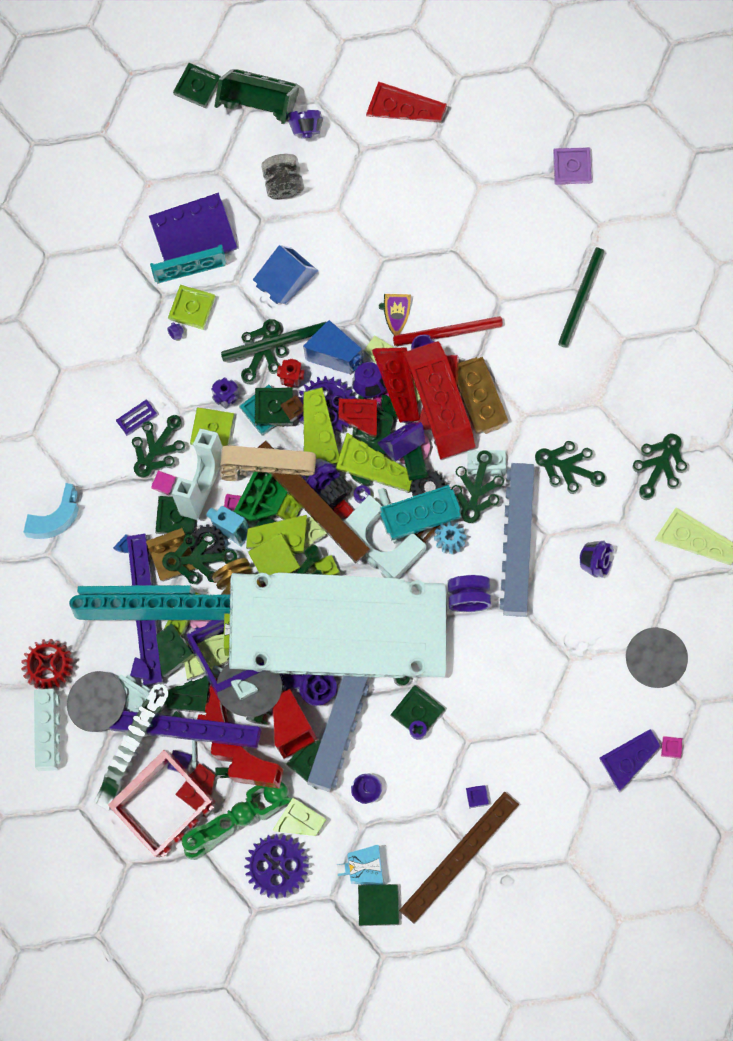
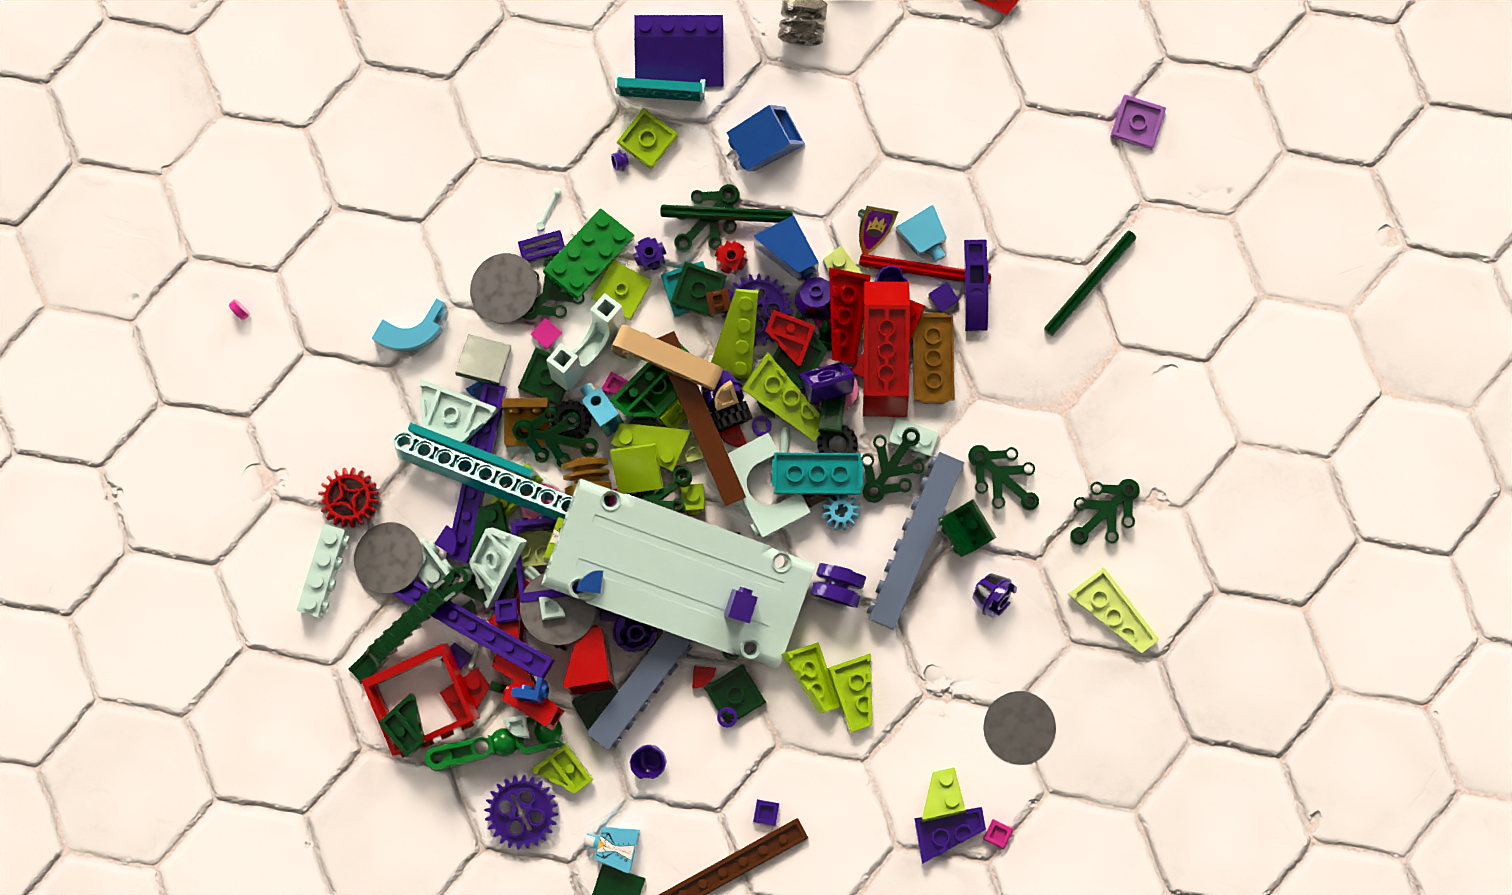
camera: 15 degrees right, 10 degrees up
(109, 567) = (452, 412): none -> light aqua wing
(117, 459) = (503, 288): none -> flat silver sticker
(120, 519) = (483, 360): none -> tile
(129, 402) = (540, 224): none -> light aqua hinge
(156, 826) = (405, 726): none -> dark green wing
(176, 408) = (588, 254): none -> green plate
(184, 669) = (495, 561): none -> light aqua wing
(208, 706) = (507, 611): none -> dark purple tile
(249, 794) = (517, 726): none -> light aqua tile
(250, 762) = (528, 694): none -> blue bracket
(269, 651) = (591, 582): none -> blue tile
(325, 475) = (725, 396): none -> tan tile
(385, 706) = (702, 676): none -> red tile
(397, 631) = (741, 604): none -> dark purple brick
(436, 304) = (924, 233): none -> medium azure torso
(470, 347) = (943, 297): none -> dark purple tile
(476, 673) = (812, 674): none -> lime wing
(492, 327) = (976, 285): none -> dark purple slope
(512, 675) = (853, 690): none -> lime wing
(556, 514) = (966, 528): none -> dark green bracket
(616, 731) = (943, 796): none -> lime wing

